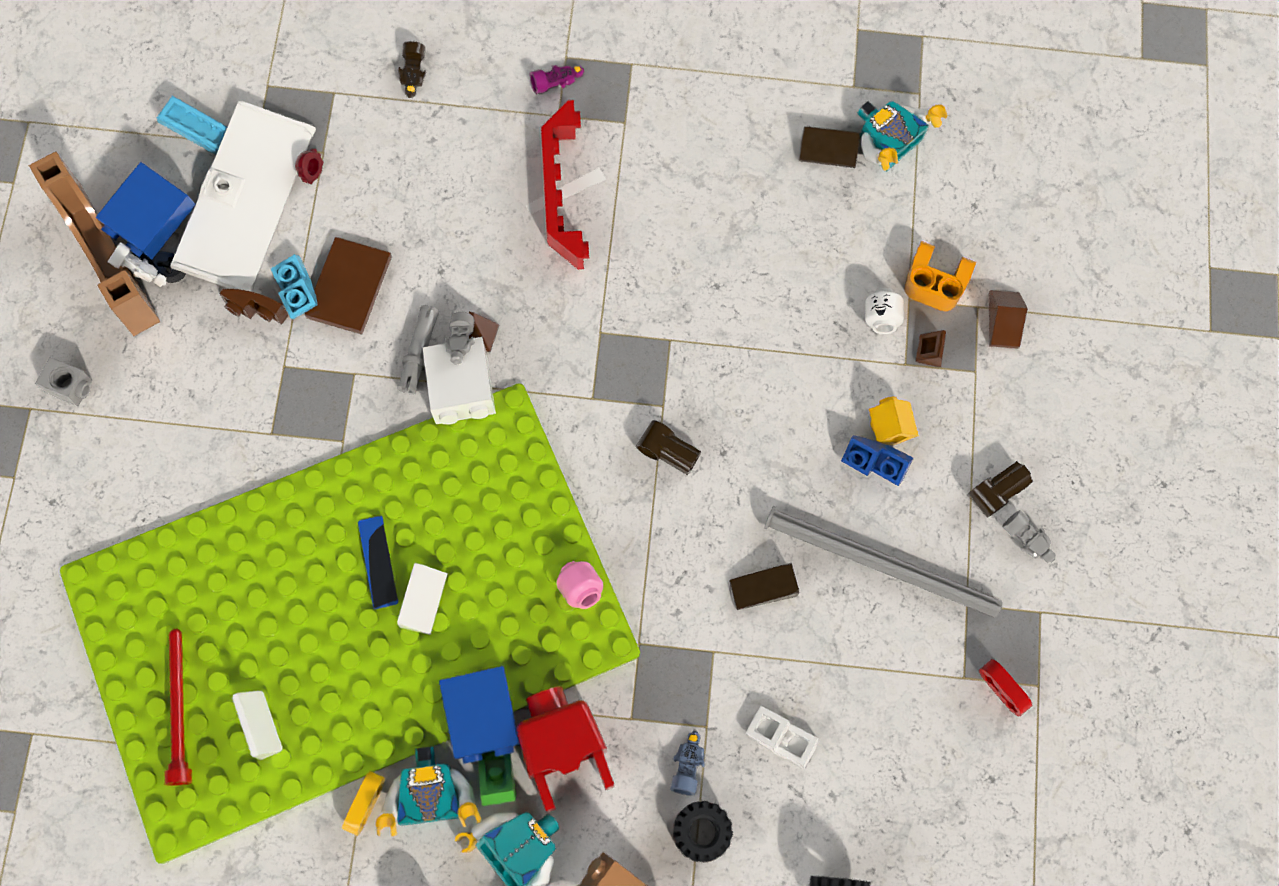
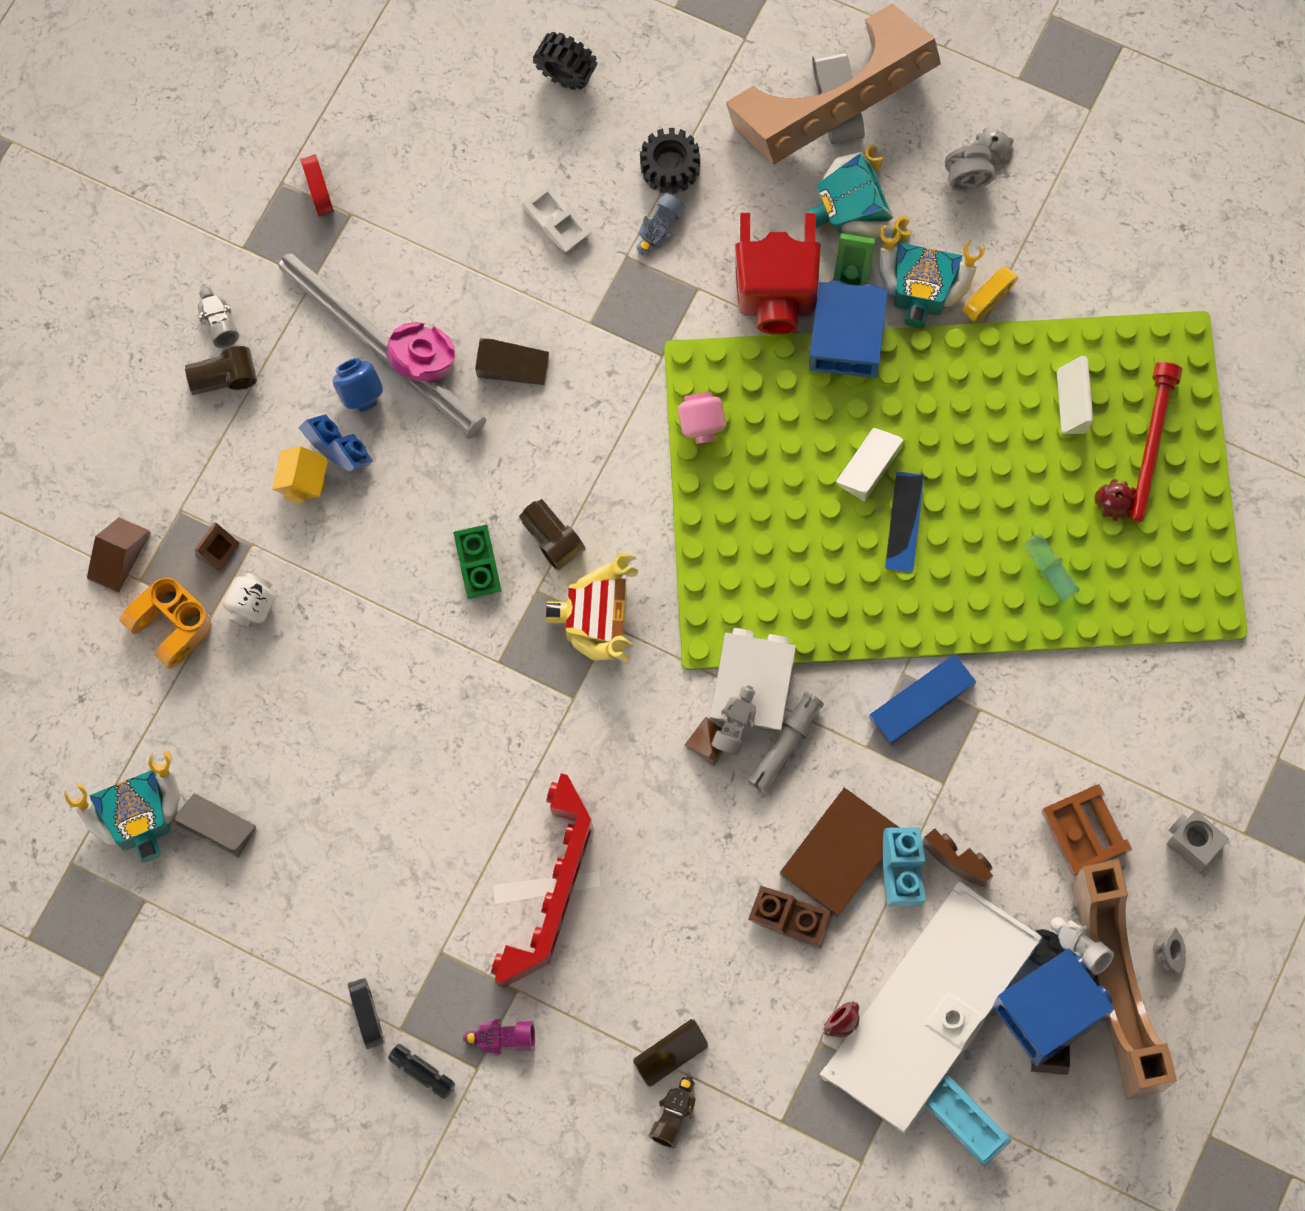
camera: 150 degrees left, 0 degrees up
(69, 294) = (1170, 951): none -> light grey animal
(164, 356) = (1075, 834): none -> dark orange plate
(206, 644) = (1115, 507): none -> dark red animal
(238, 560) = (1051, 567): none -> clear light blue axle
(319, 423) = (922, 699): none -> blue tile
(372, 227) = (790, 917): none -> reddish brown slope
(431, 107) = (670, 1052): none -> dark brown slope
(603, 38) = (421, 1071): none -> black axle
(604, 393) = (597, 611): none -> torso
(659, 59) = (366, 1013): none -> black beam
(719, 408) = (477, 561): none -> green slope
(844, 563) = (420, 352): none -> dark pink tile
(883, 513) = (357, 384): none -> blue head

